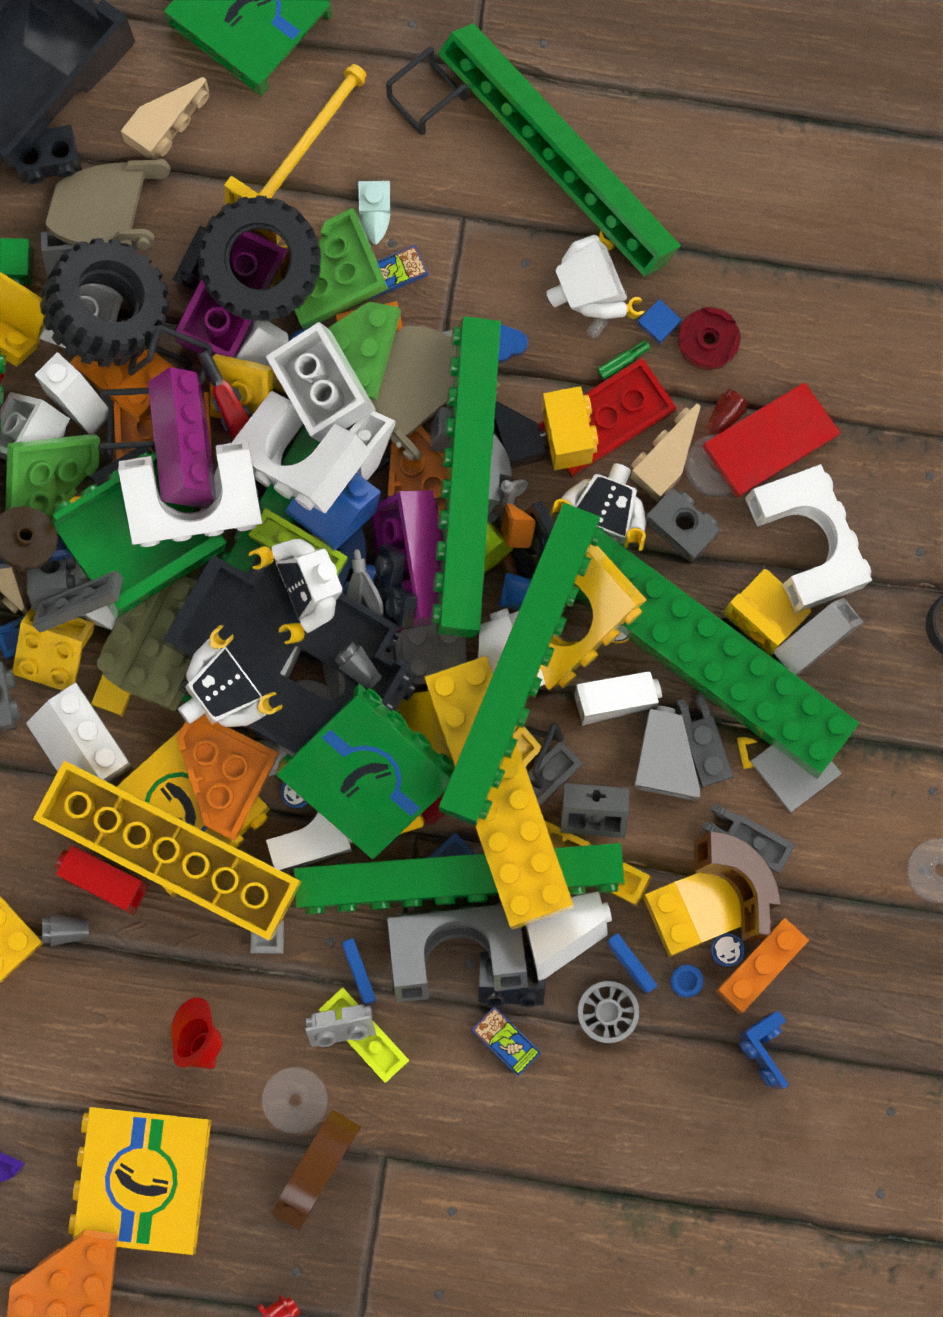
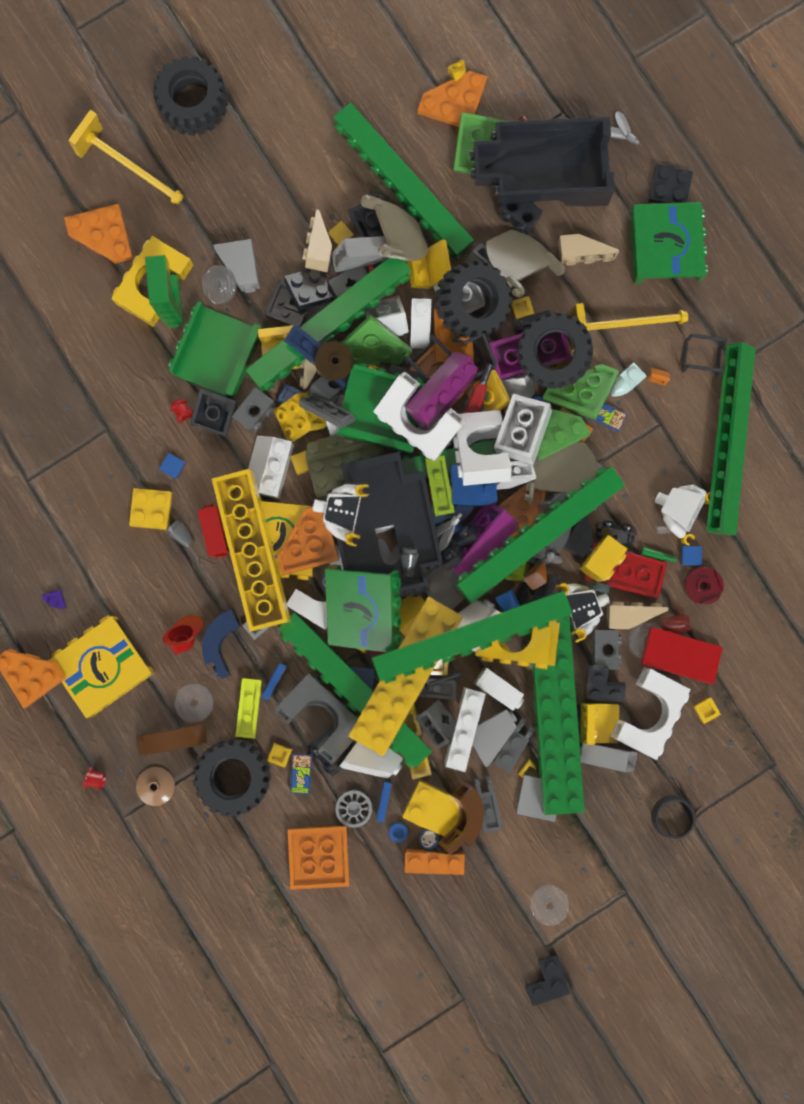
camera: 50 degrees right, 5 degrees up
(167, 255) = (522, 307): none -> yellow tile
(230, 988) = (213, 640): none -> dark blue arch
(308, 580) = (425, 505): white torso -> none
(325, 1029) = (235, 690): light grey hinge -> none
(357, 1227) = (164, 782): none -> medium nougat dish
(387, 1136) = (207, 786): none -> black tyre
(403, 167) = (658, 376): none -> orange slope
(458, 1048) = (279, 755): none -> yellow tile
(511, 343) = (621, 497): blue tile -> none
(557, 377) = (623, 532): none -> black hinge
(600, 464) = (600, 587): none -> clear light blue tile
(630, 1110) = (318, 857): none -> orange plate
(649, 809) = (461, 744): none -> white arch
(724, 574) = (600, 689): none -> black plate
(764, 1030) = (406, 888): blue bracket -> none
(865, 469) = (706, 710): none -> yellow tile

